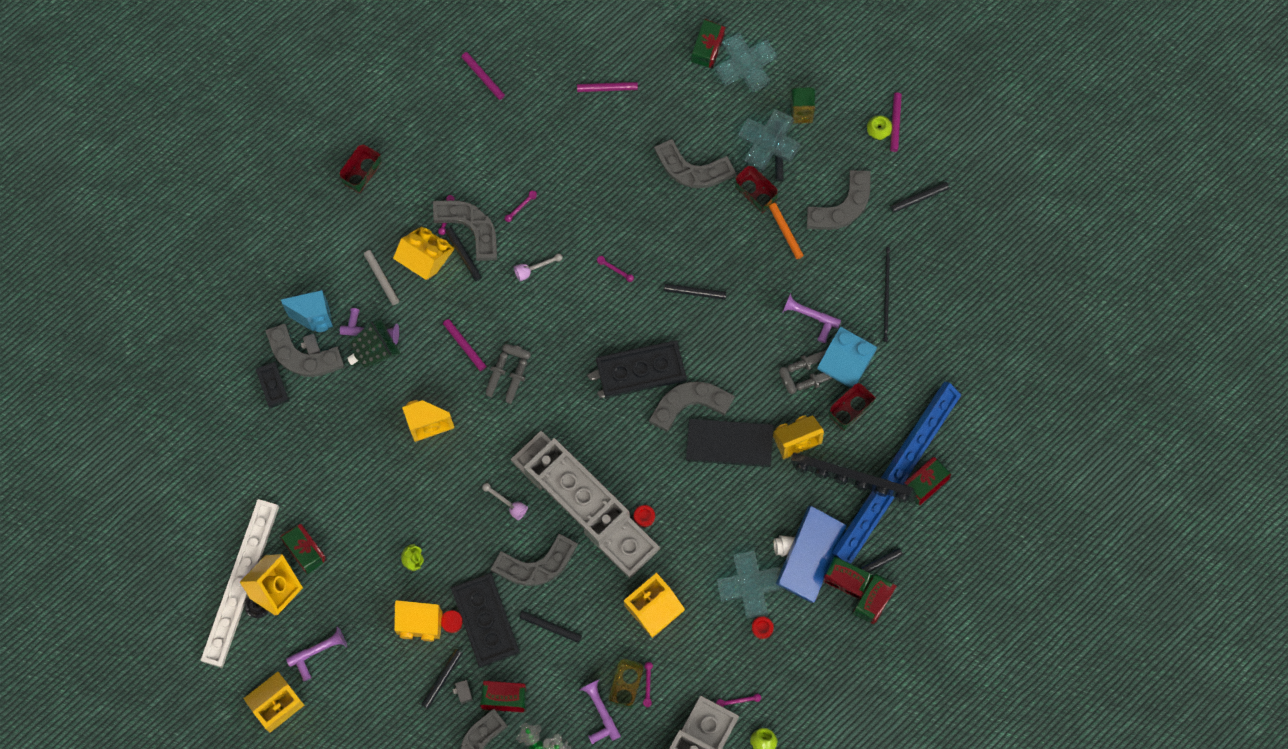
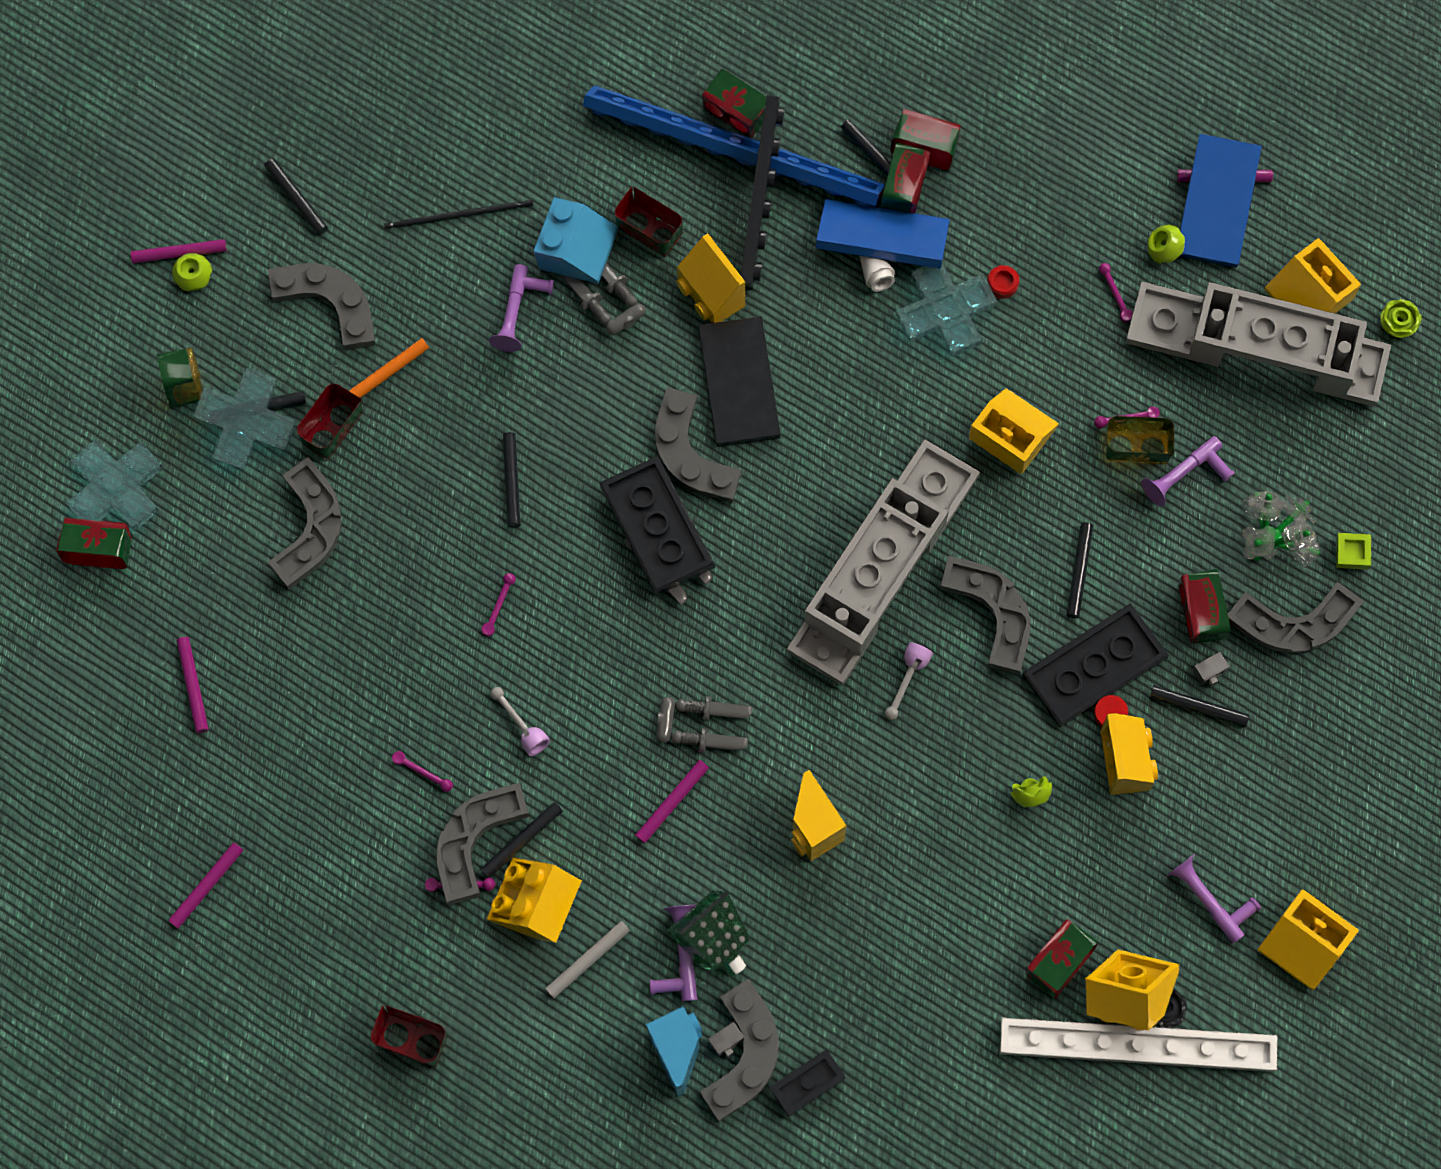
camera: 105 degrees left, 0 degrees up
(644, 516) = (878, 475): red tile -> none

